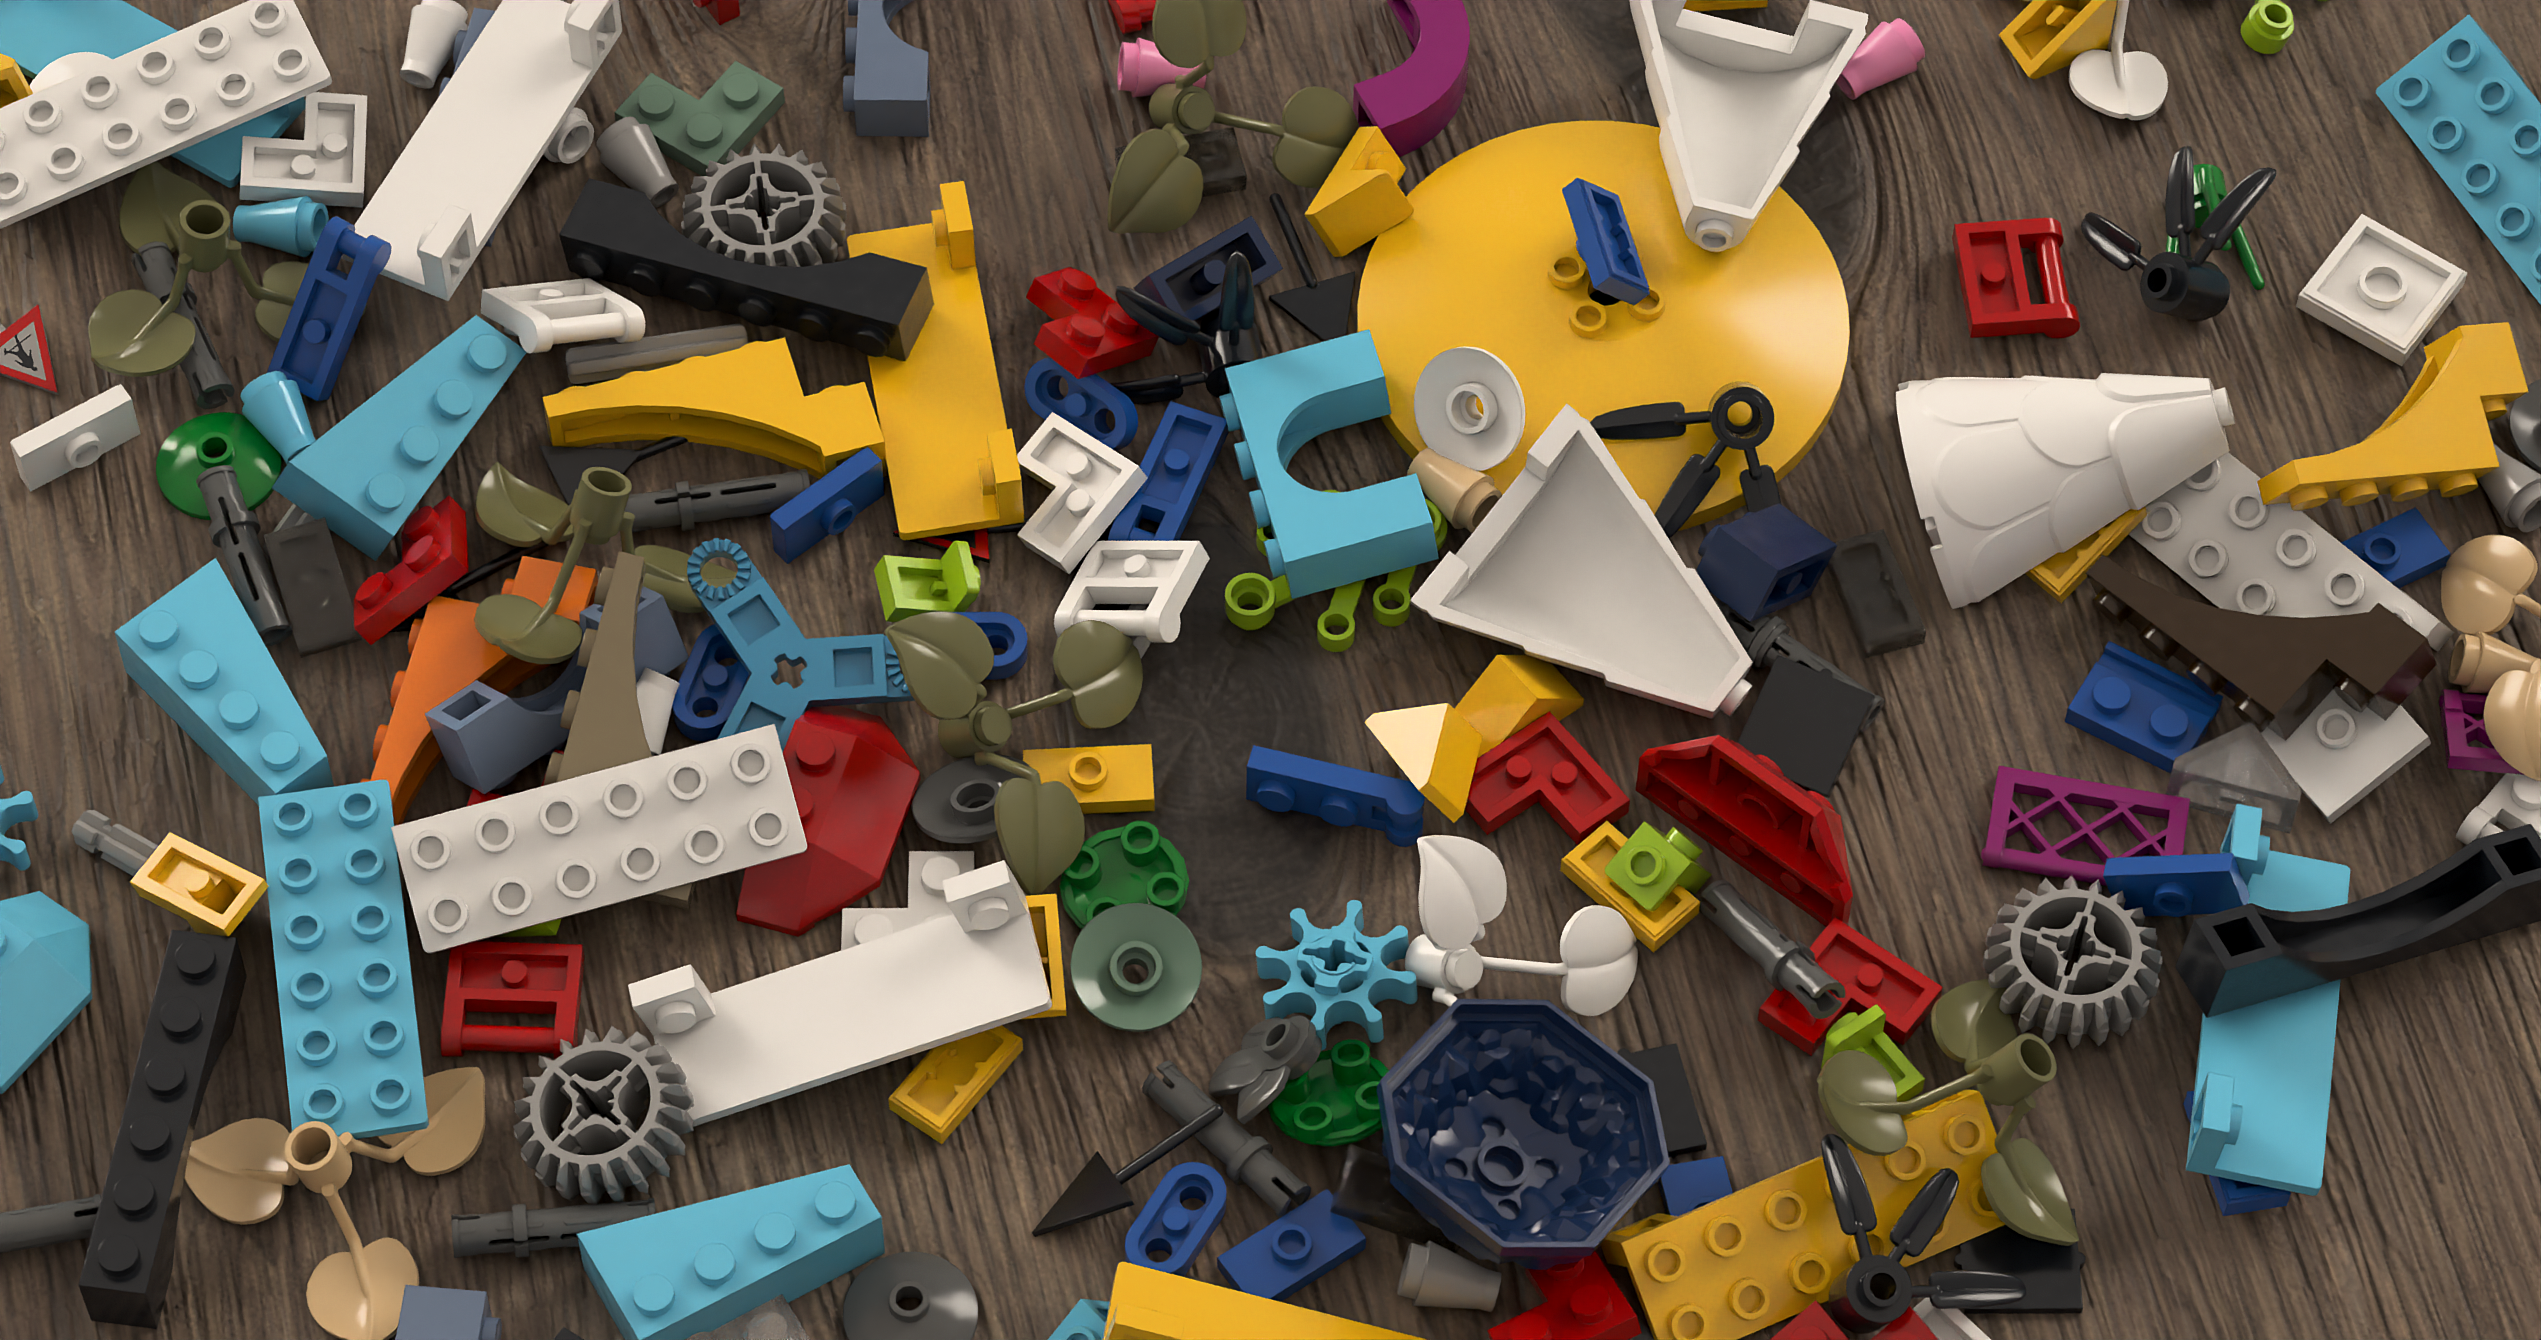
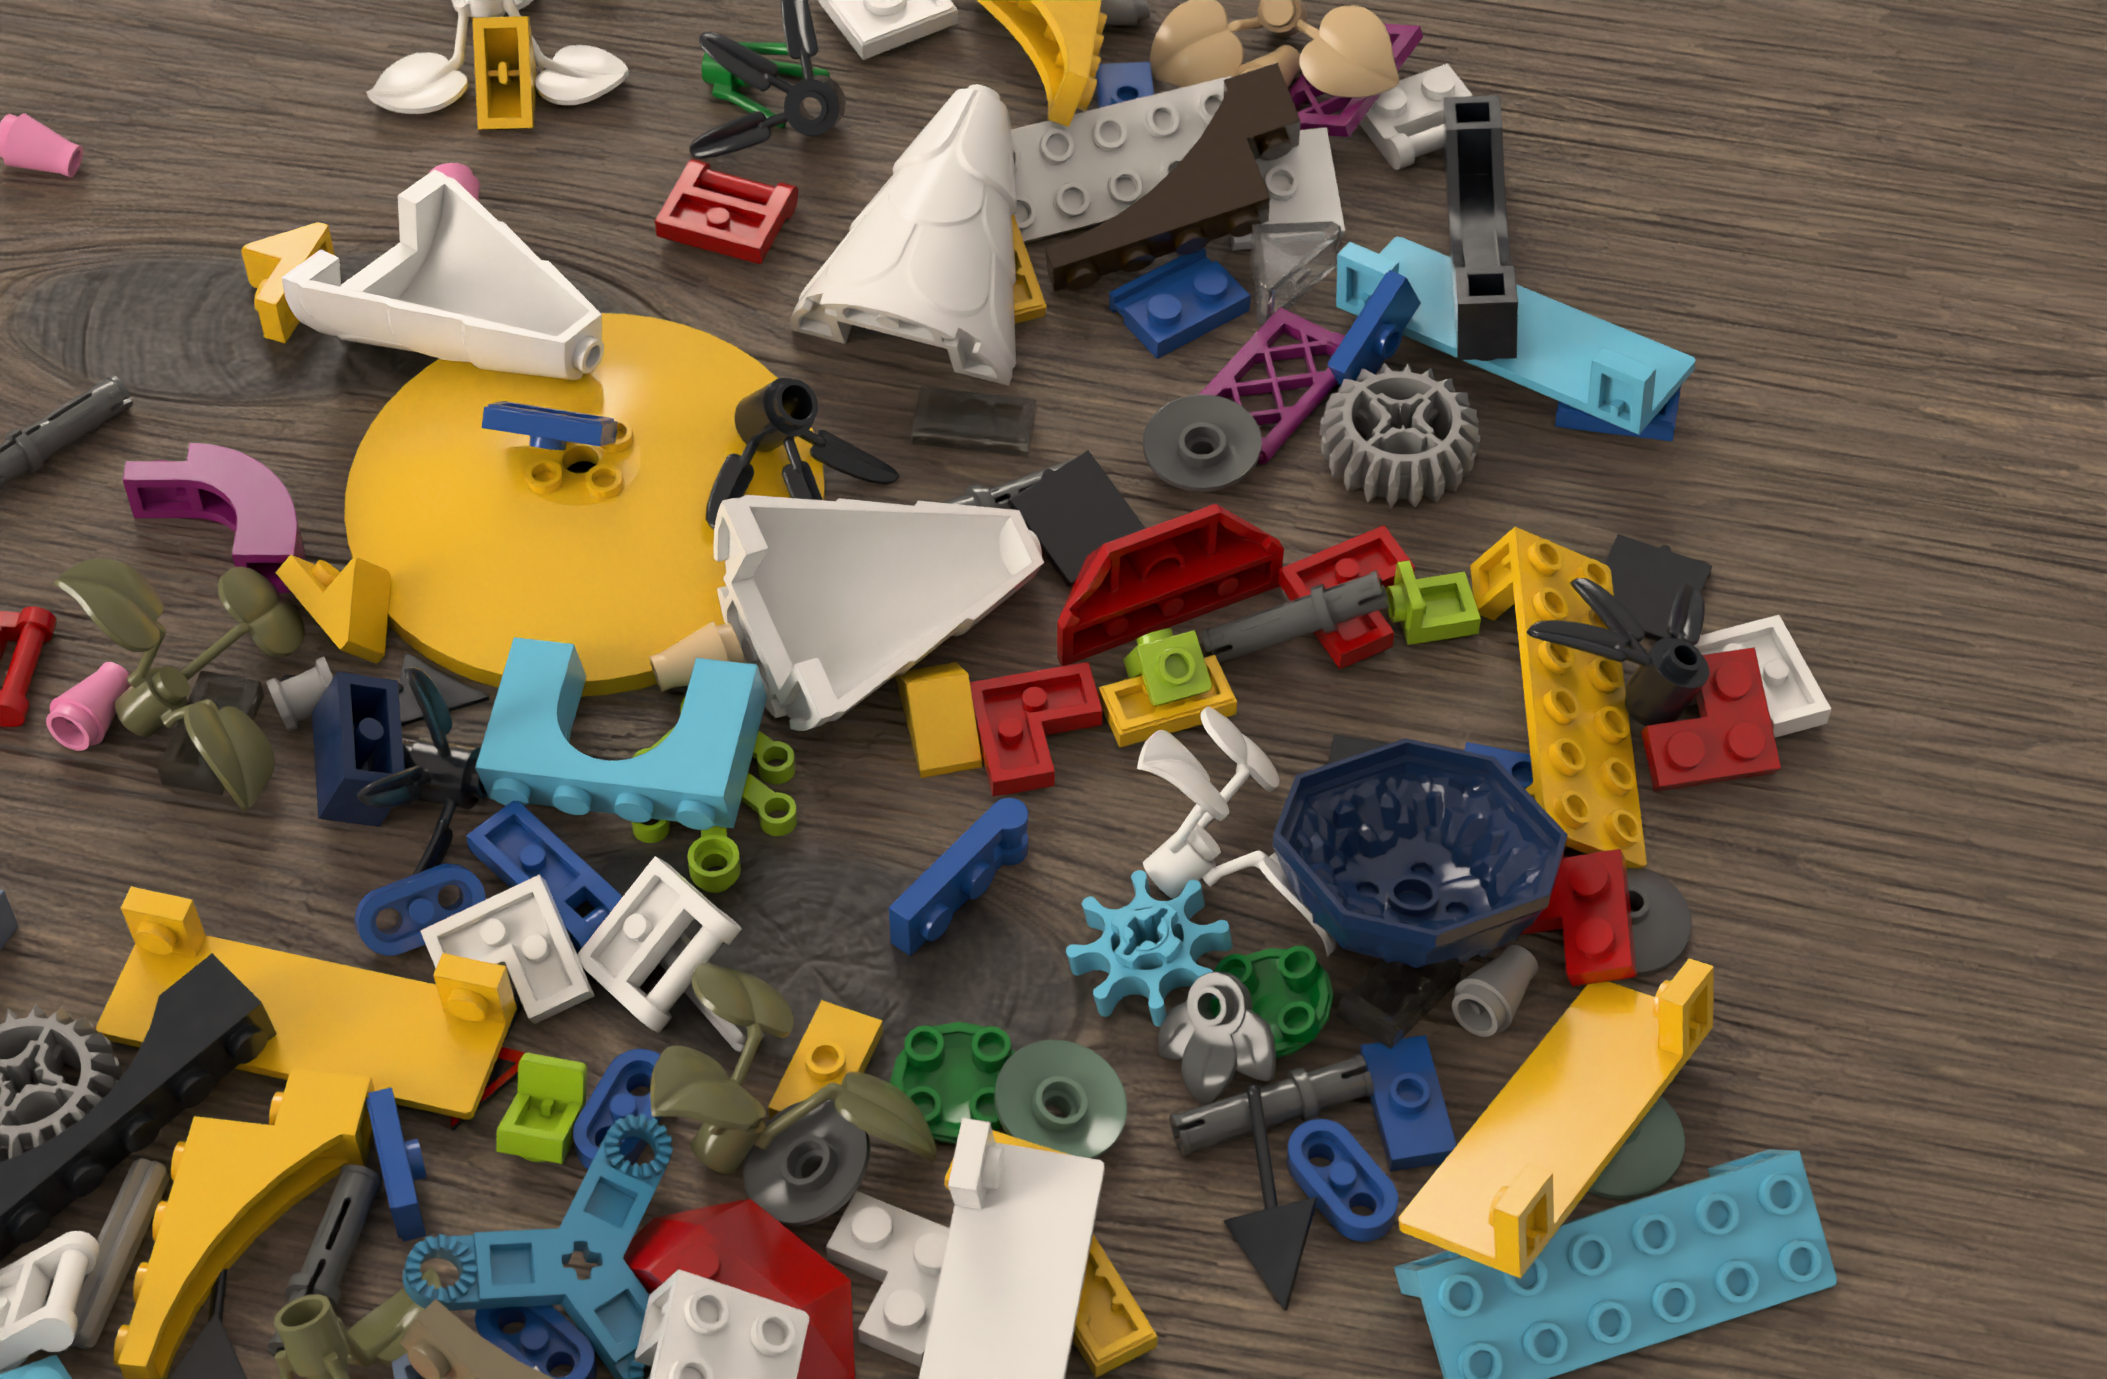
camera: 65 degrees left, 5 degrees down
(1088, 325) = (354, 860): red plate -> none
(1242, 201) = (300, 694): none -> light grey bush
(1433, 750) = (969, 778): yellow slope -> none
(1448, 409) = (663, 619): white dish -> none
(1763, 561) = (916, 464): dark blue brick -> none
(1958, 771) = (1198, 426): none -> dark grey dish
(2006, 1069) = (1532, 489): olive plant -> none

